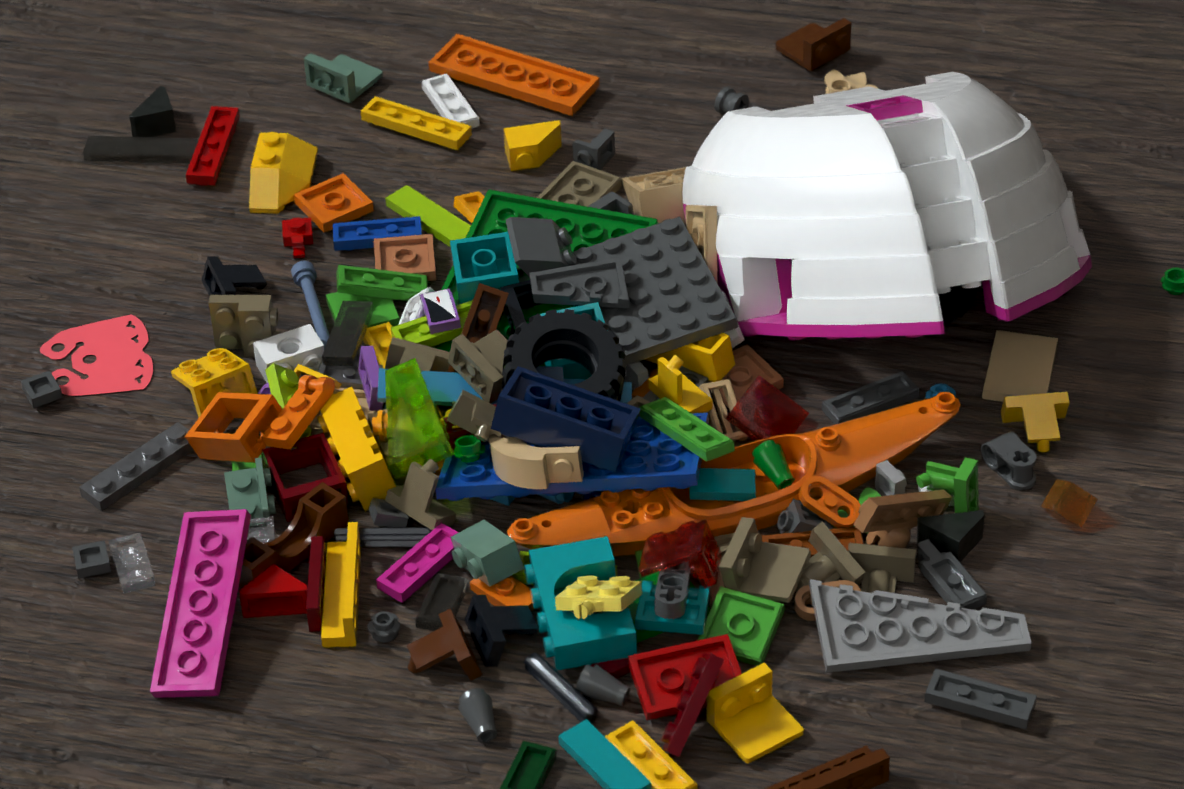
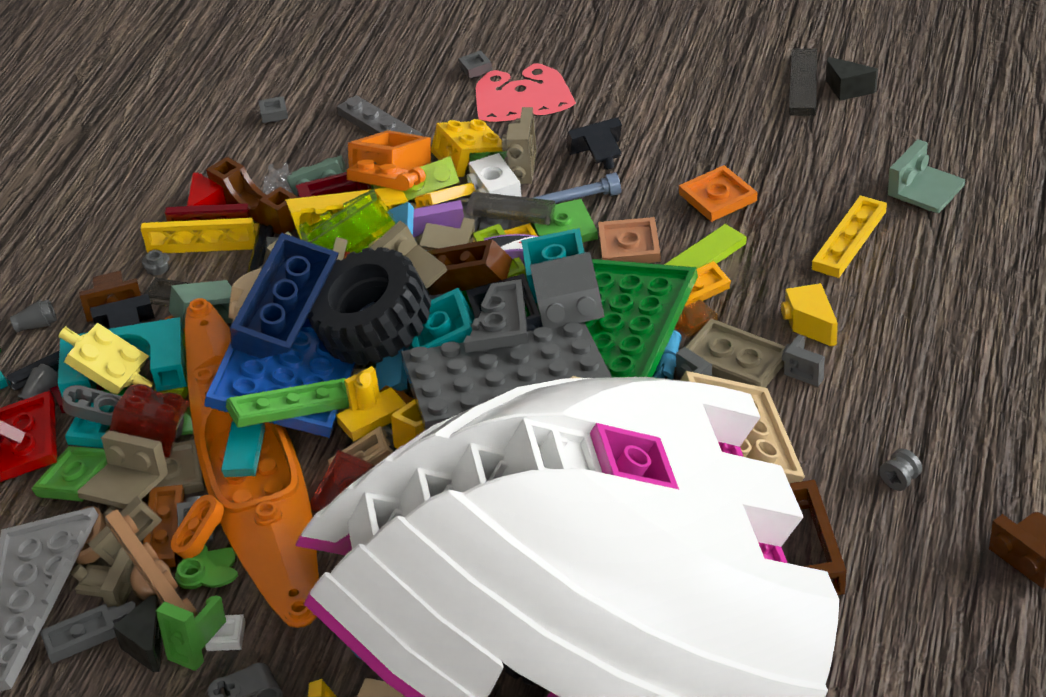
camera: 95 degrees right, 0 degrees up
(132, 563) = (263, 128): clear plate -> none
(200, 604) = (184, 151): dark pink plate -> none
(212, 145) = (806, 116): red plate -> none
(279, 170) = (772, 153): yellow wedge -> none
(297, 233) = (670, 177): red plate -> none
(362, 233) = (669, 223): blue plate -> none
(379, 283) = (583, 215): bright green tile -> none
(418, 564) = (209, 268): dark pink plate -> none
(449, 100) = (894, 261): white tile -> none
(514, 74) = (942, 300): orange plate -> none
(772, 462) = (258, 482): green cone -> none
(838, 82) = (957, 582): tan plate -> none
(889, 479) = (233, 586): light grey plate -> none

